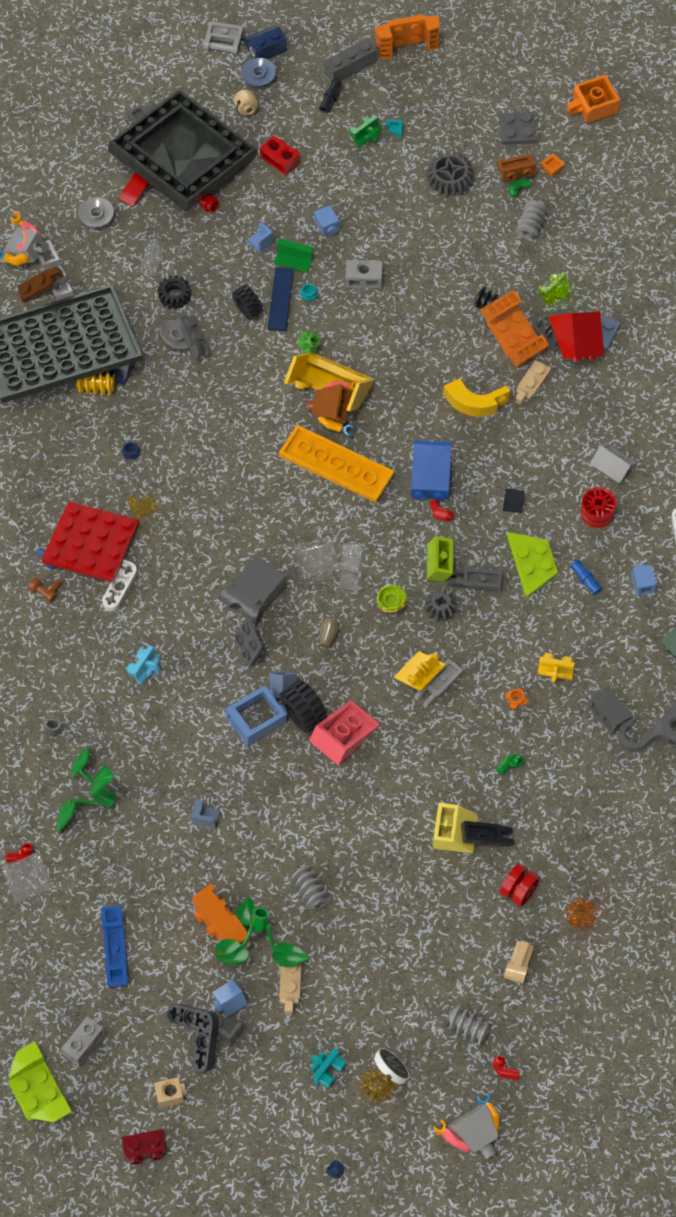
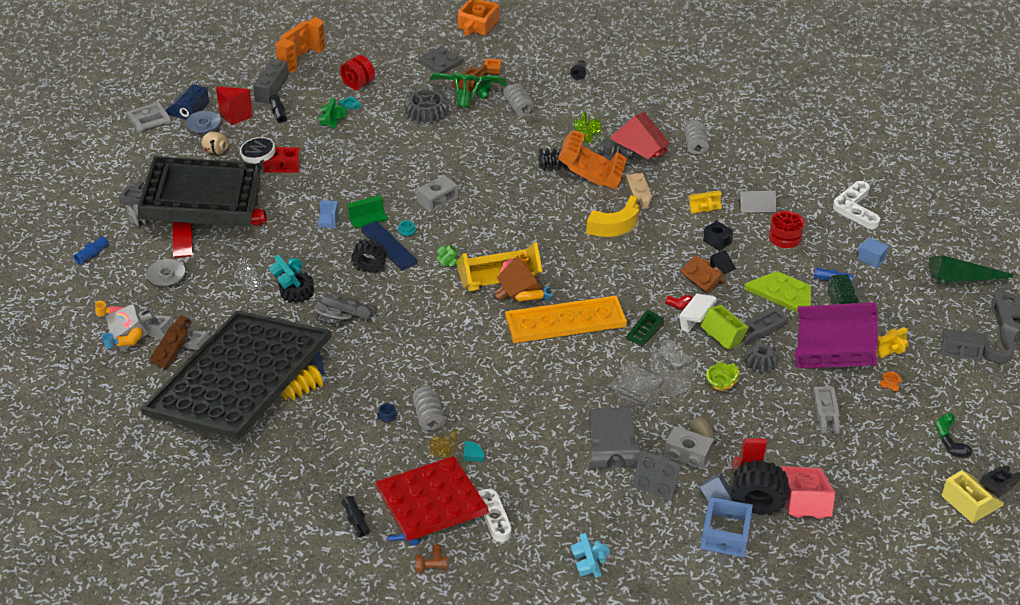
camera: 45 degrees left, 20 degrees down
(30, 518) = (355, 516): none -> black pin
(65, 152) = (91, 250): none -> blue pin
(155, 526) = (473, 452): none -> teal tile
(156, 469) = (428, 408): none -> light grey piece
(172, 275) = (293, 266): none -> teal hips
(262, 135) = (257, 149): none -> tile
(293, 72) = (234, 104): none -> red slope
(297, 627) = (688, 447): none -> light grey brick
(317, 680) = (751, 450): none -> red slope
(326, 221) = (368, 178): medium blue brick -> none
(401, 518) = (648, 316): none -> dark green slope
(420, 670) = (805, 407): yellow hinge -> none
(425, 99) = (357, 72): none -> red wheel
(431, 470) = (644, 276): blue slope -> none
(437, 527) = (696, 311): none -> white panel
(486, 499) = (702, 274): none -> dark orange bracket
(490, 179) = (464, 95): none -> green plant
(494, 787) = (956, 449): none -> black arm
(515, 632) = (837, 335): none -> magenta panel
(537, 479) = (717, 235): none -> black brick
(566, 433) = (705, 201): none -> yellow hips
(567, 600) = (841, 290): none -> clear green brick
(622, 219) = (578, 71): none -> black cone
(634, 363) = (696, 137): none -> light grey piece

